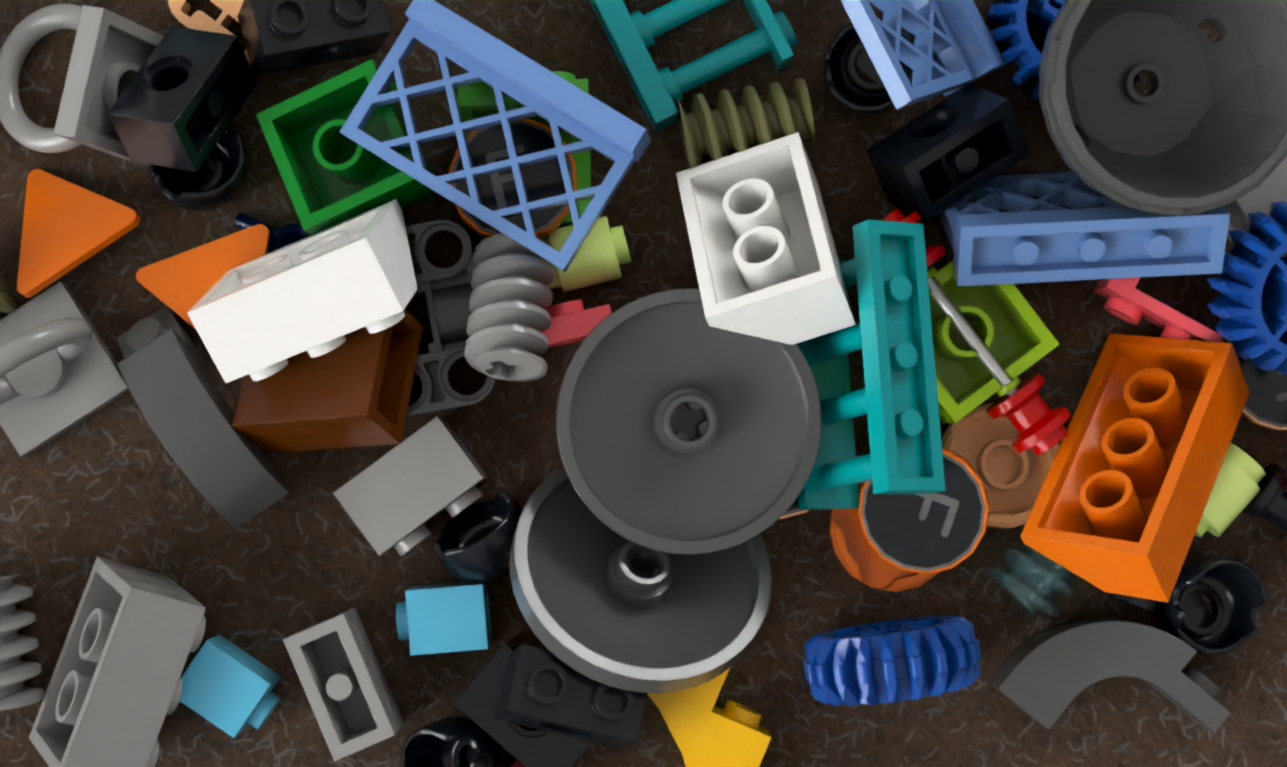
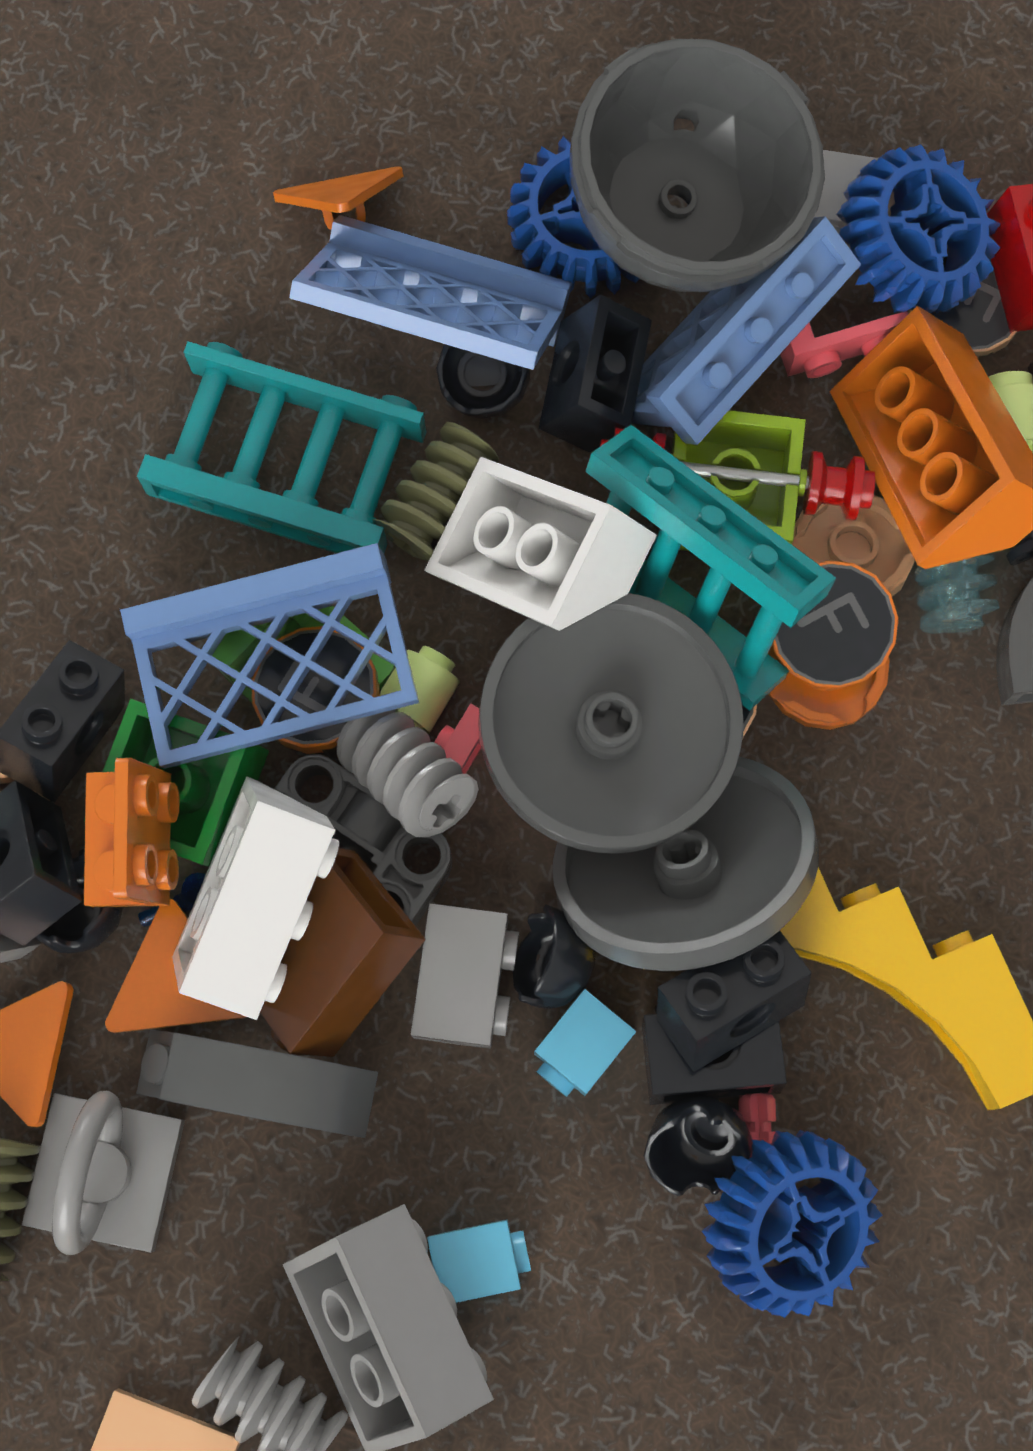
camera: 40 degrees left, 10 degrees down
(268, 163) = (130, 836): none -> orange bracket
(344, 684) = (559, 1165): light grey brick -> none
(892, 660) = (922, 747): blue gear -> none

